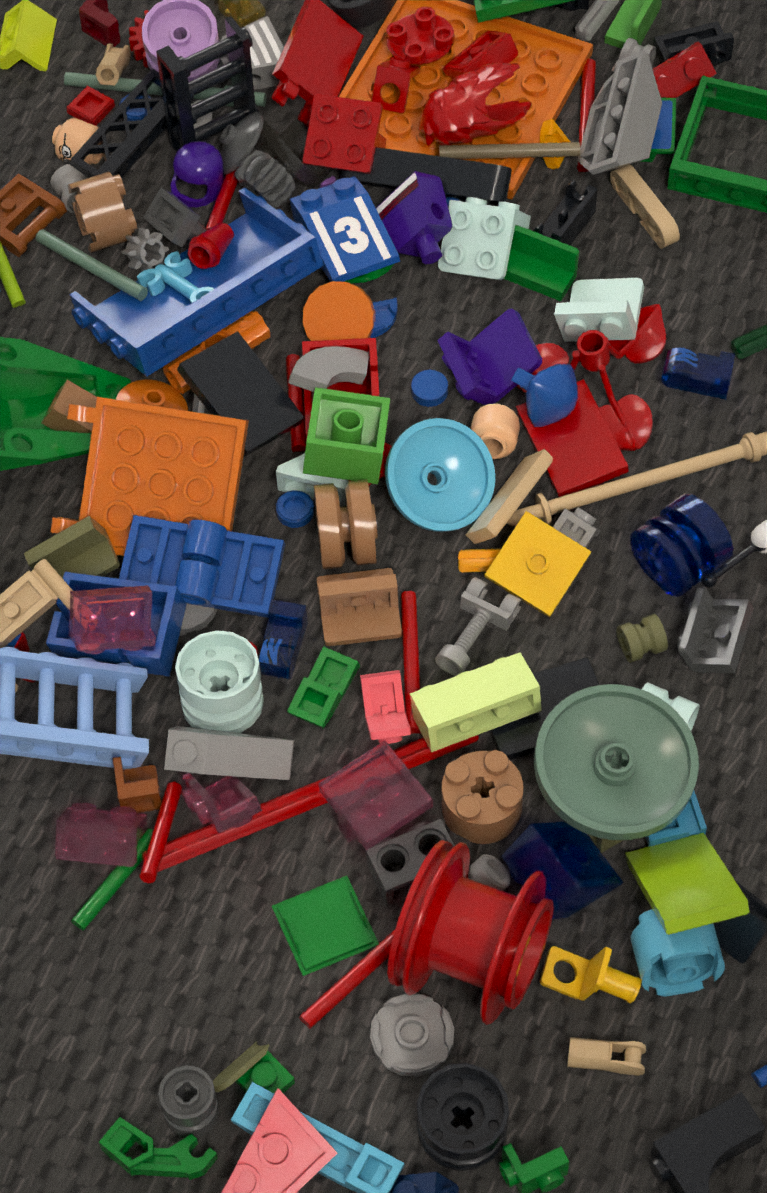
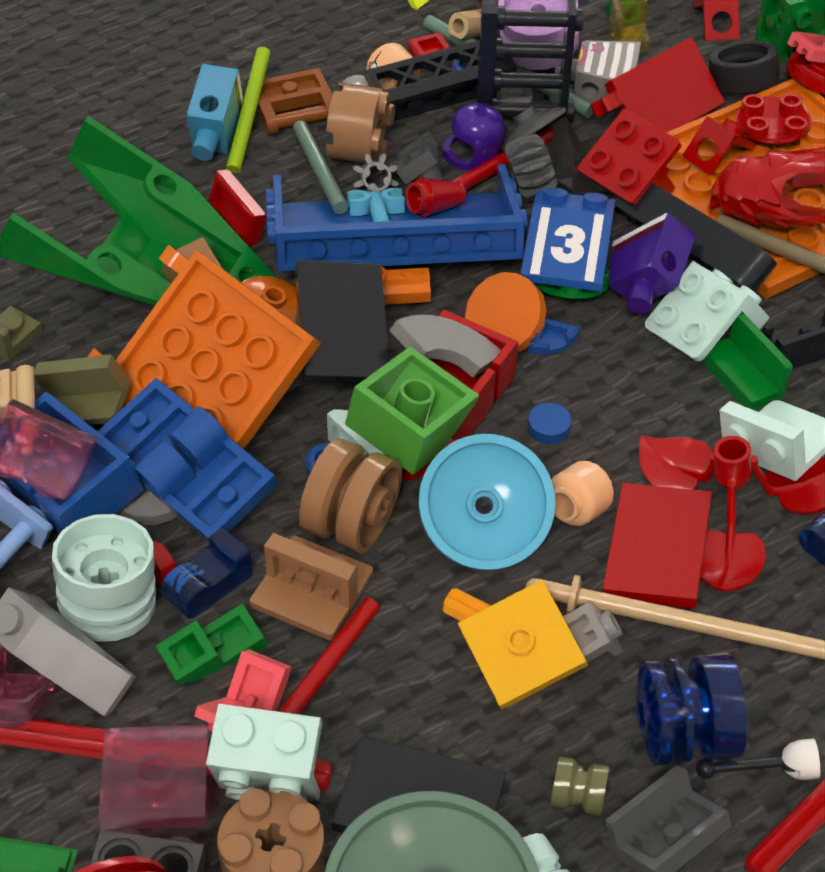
camera: 30 degrees right, 10 degrees down
(58, 336) = (237, 207): none -> red tile
(440, 734) = (264, 751): none -> light aqua bracket
(454, 657) = (430, 643): light grey bar -> none
(476, 701) = (360, 744): yellowish green brick -> none
(491, 358) = (626, 430): dark purple bracket -> none
(509, 497) = (546, 563): tan tile -> none
(549, 393) = (657, 481): blue piece -> none

